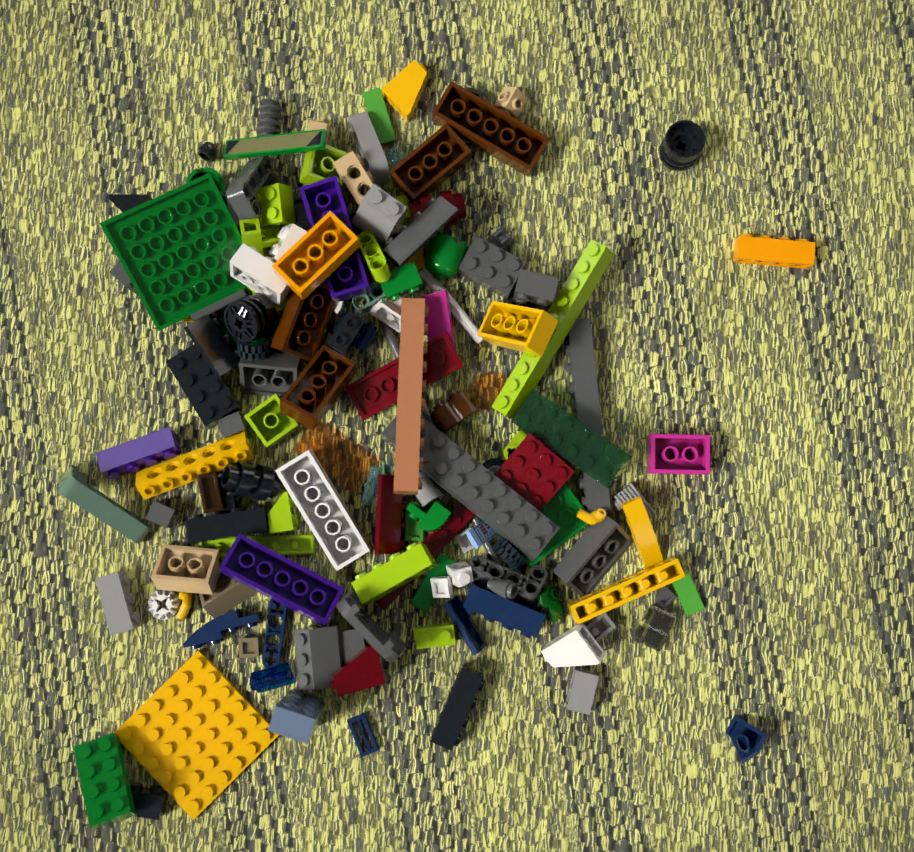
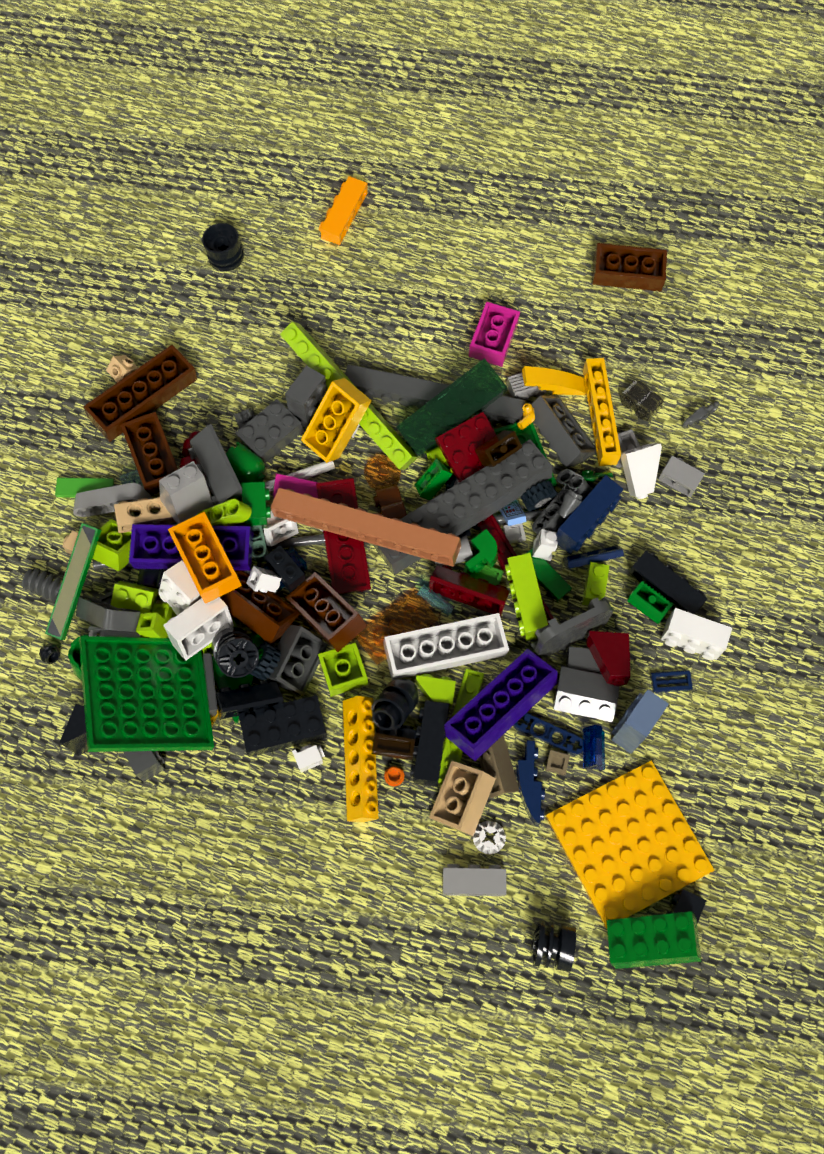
camera: 75 degrees left, 15 degrees down
(74, 487) = (366, 863): sand green beam -> none
(78, 691) = (554, 946): none -> black wheel
(139, 453) = (329, 811): dark purple brick -> none
(163, 514) = (399, 807): dark grey brick -> none
(183, 418) = (308, 757): none -> white brick
(185, 606) = (496, 812): yellow arm -> none
(192, 501) = (394, 776): none -> orange plate
(233, 424) = (332, 710): dark grey brick -> none
(327, 317) = (263, 580): none -> white brick
(406, 89) = (70, 454): yellow slope -> none
(411, 748) = (696, 634): none -> white brick
(432, 694) = (650, 602): none -> green brick
(441, 587) = (552, 563): white plate -> none
(493, 443) = (433, 479): none -> green slope
(536, 499) = (498, 448): none -> dark brown brick
(659, 693) = (701, 413): none -> dark grey piece
(665, 597) = (616, 385): dark grey tile -> none
(688, 595) = (621, 367): bright green tile -> none
(746, 738) = (758, 359): dark blue slope -> none
(810, 574) = (629, 267): none -> reddish brown brick

